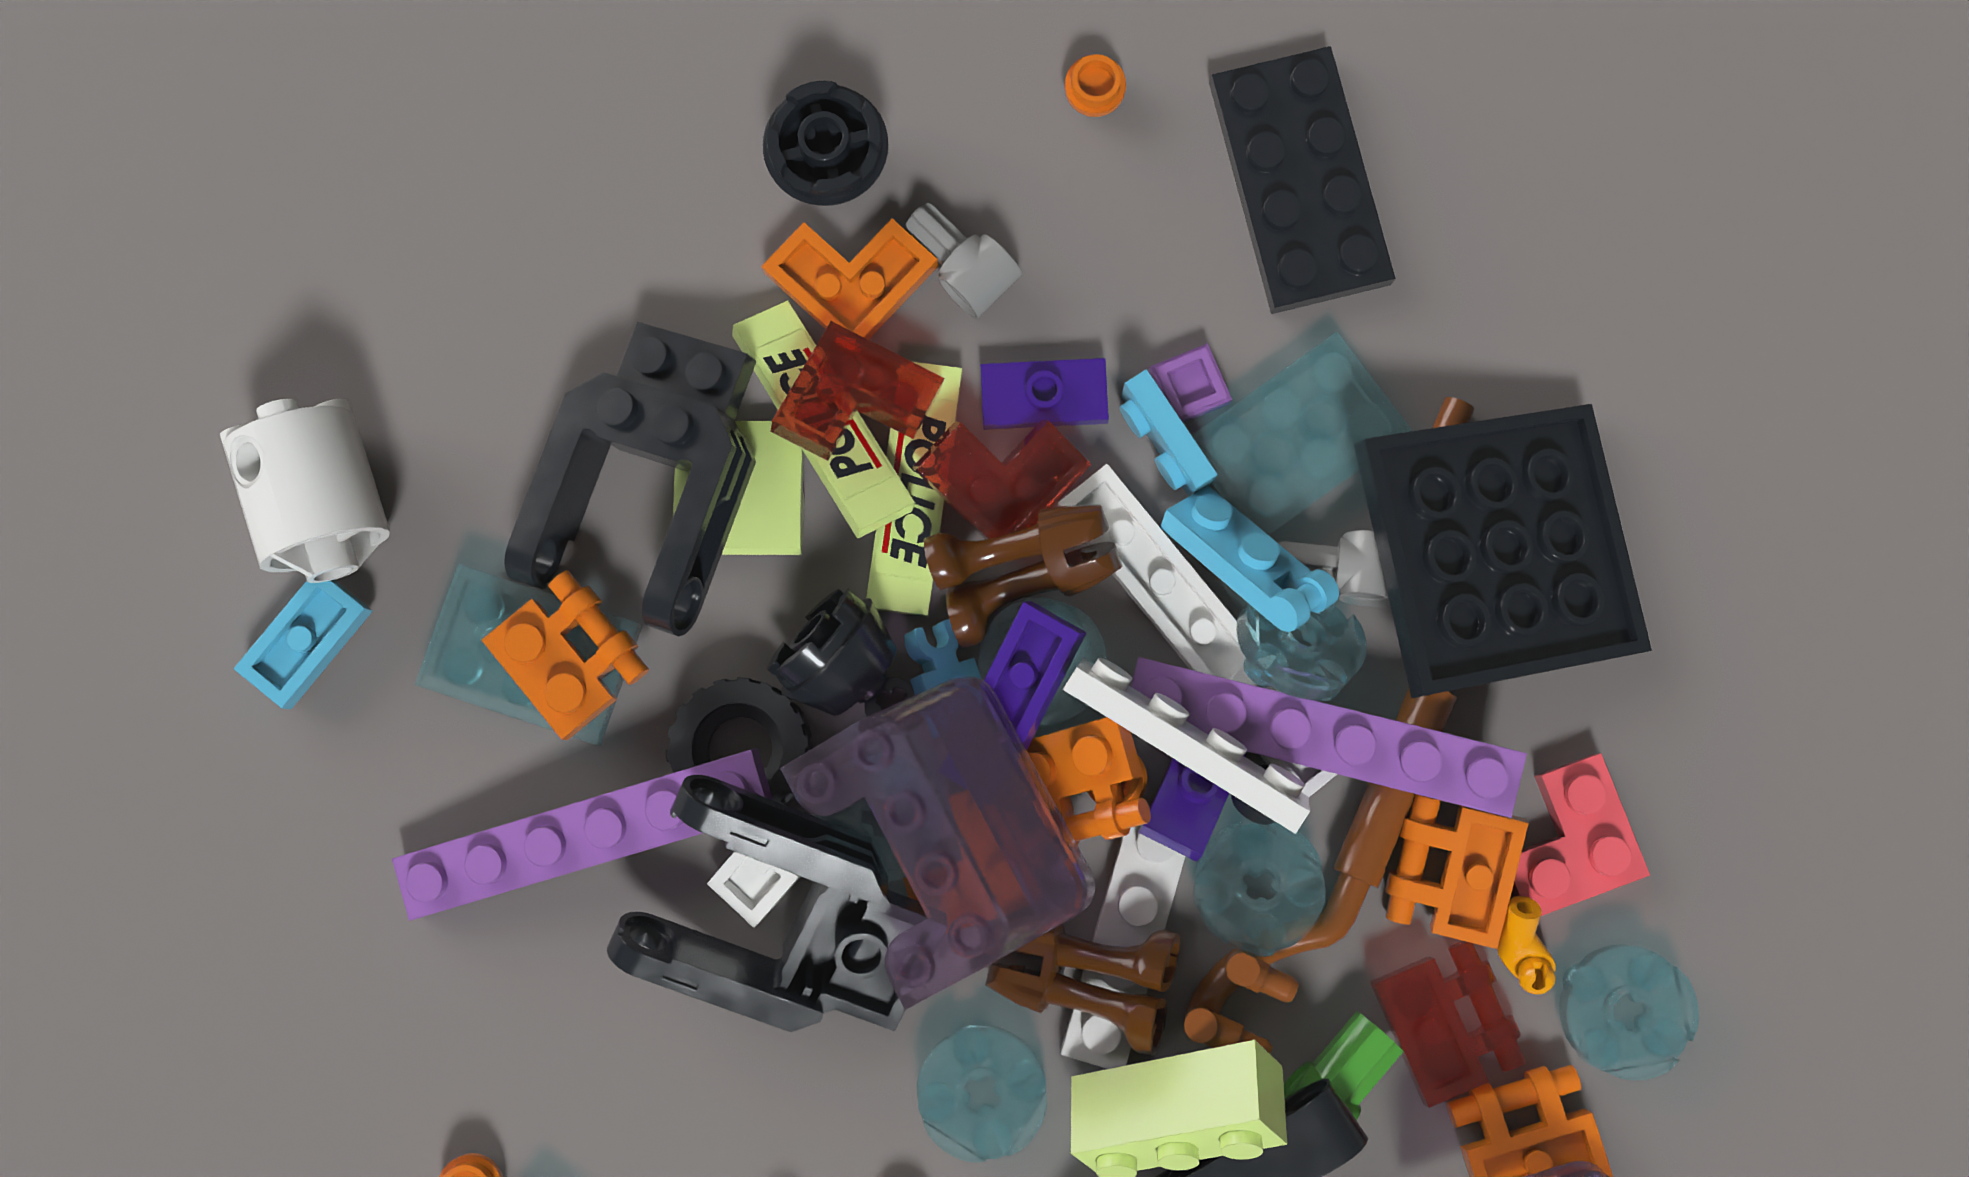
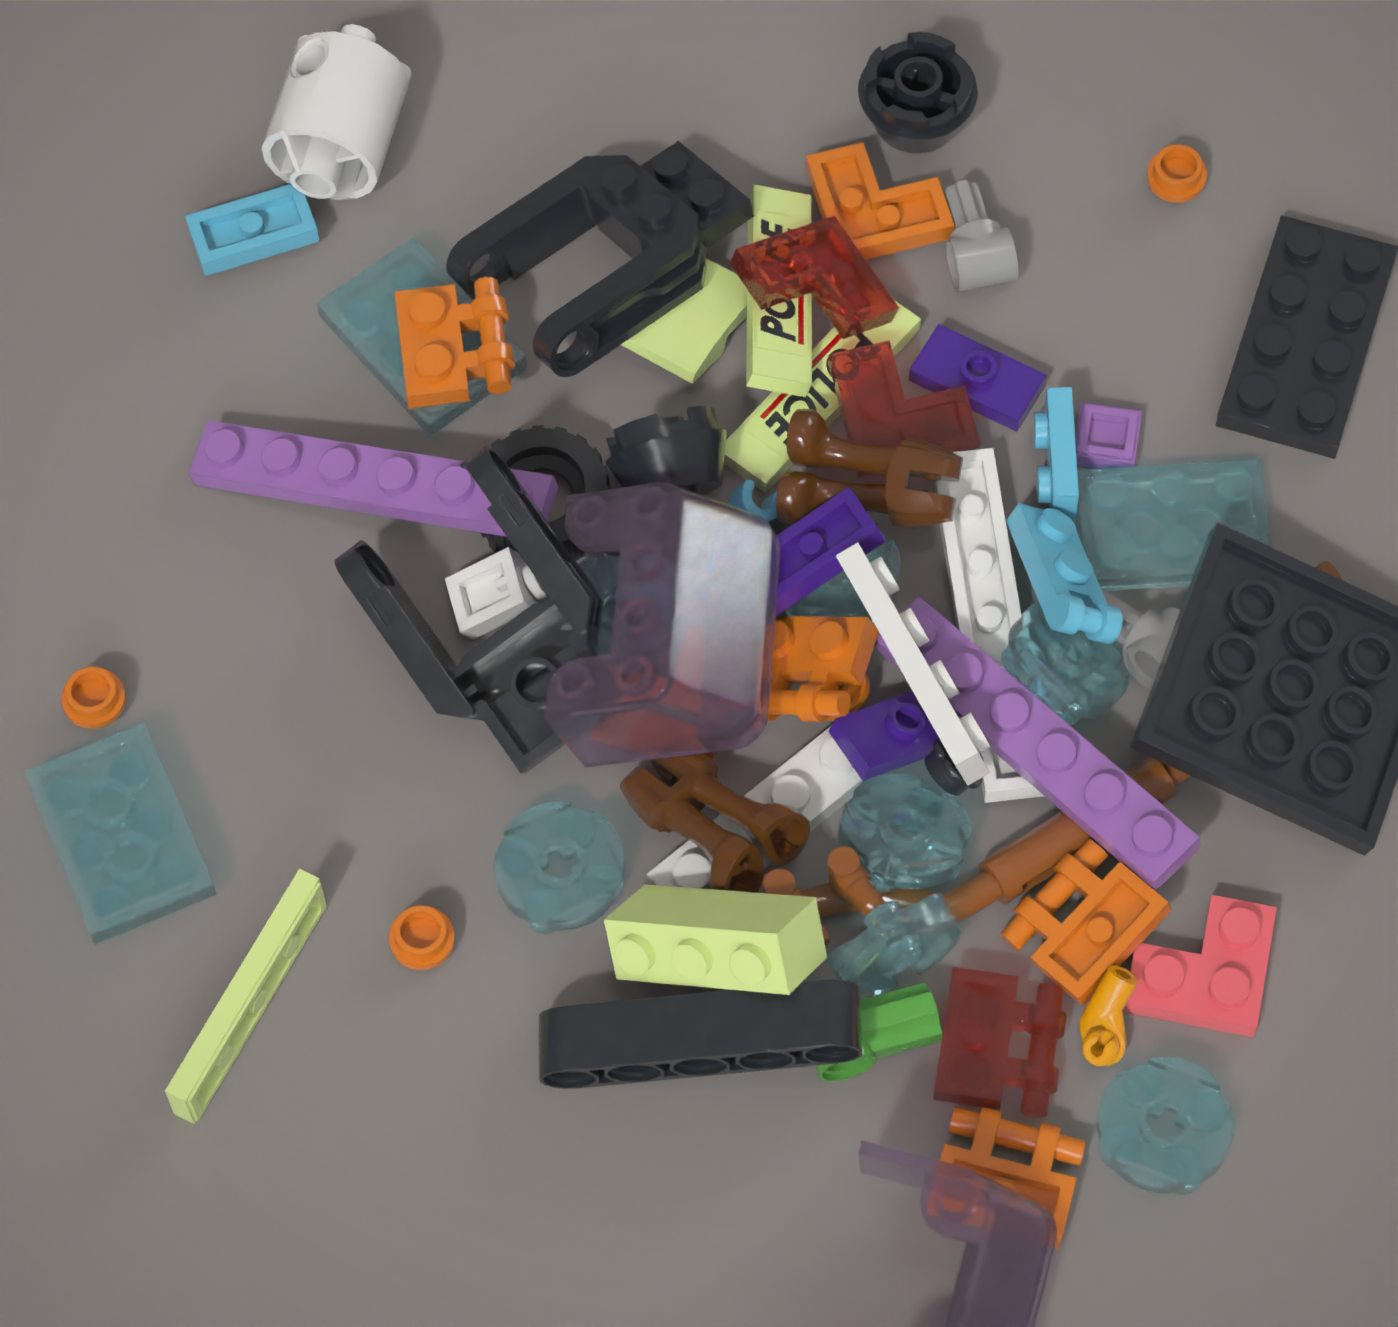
camera: 30 degrees right, 20 degrees down
(1324, 1006) = (894, 942): none -> clear light blue plate

